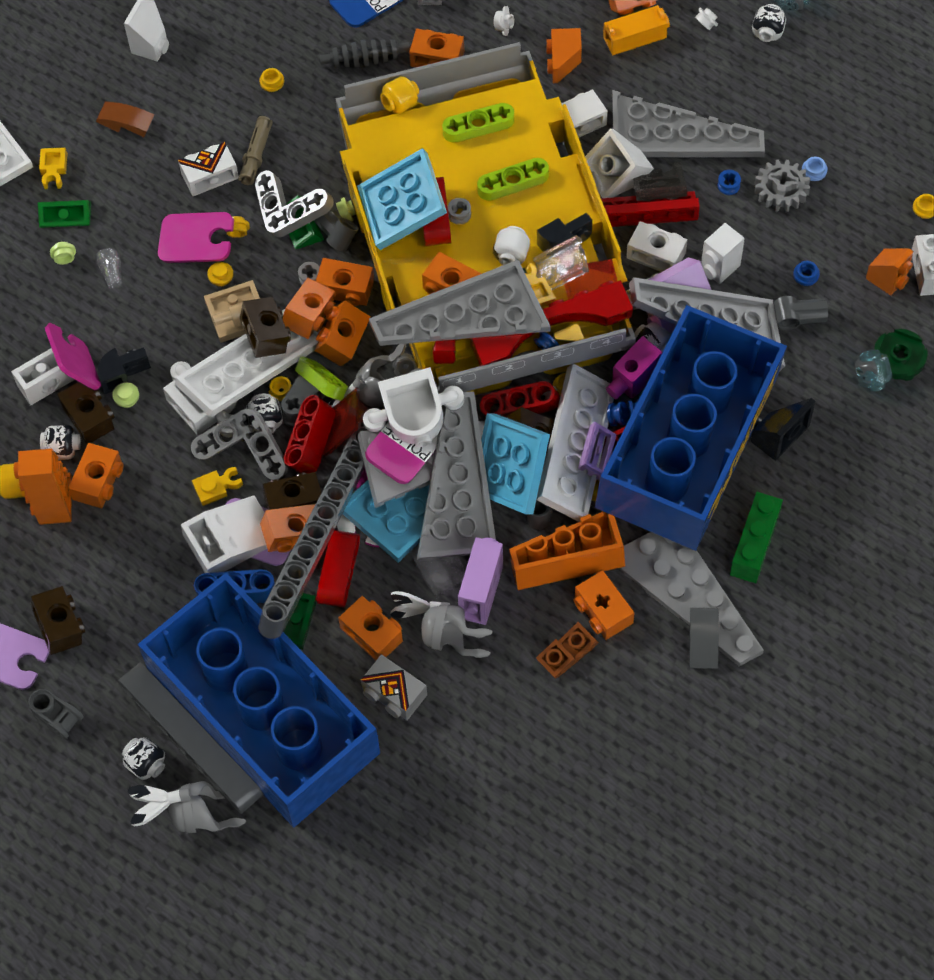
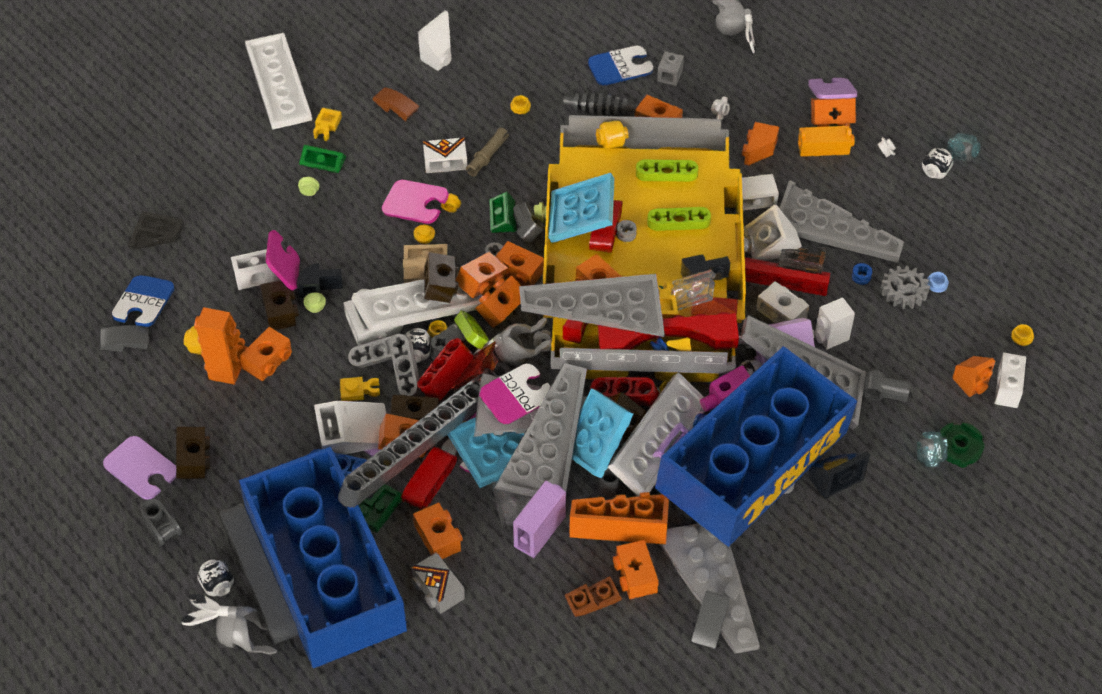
camera: 15 degrees right, 10 degrees down
(61, 440) = (249, 321): head -> none
(110, 266) = (340, 205): clear cone -> none
(284, 212) = (488, 205): light grey beam -> none
(413, 407) = (531, 364): white piece -> none
(440, 624) = (494, 543): light grey hair -> none
(511, 245) = (658, 263): white head -> none
(756, 537) = (784, 552): green brick -> none
(806, 267) = (905, 355): blue plate -> none

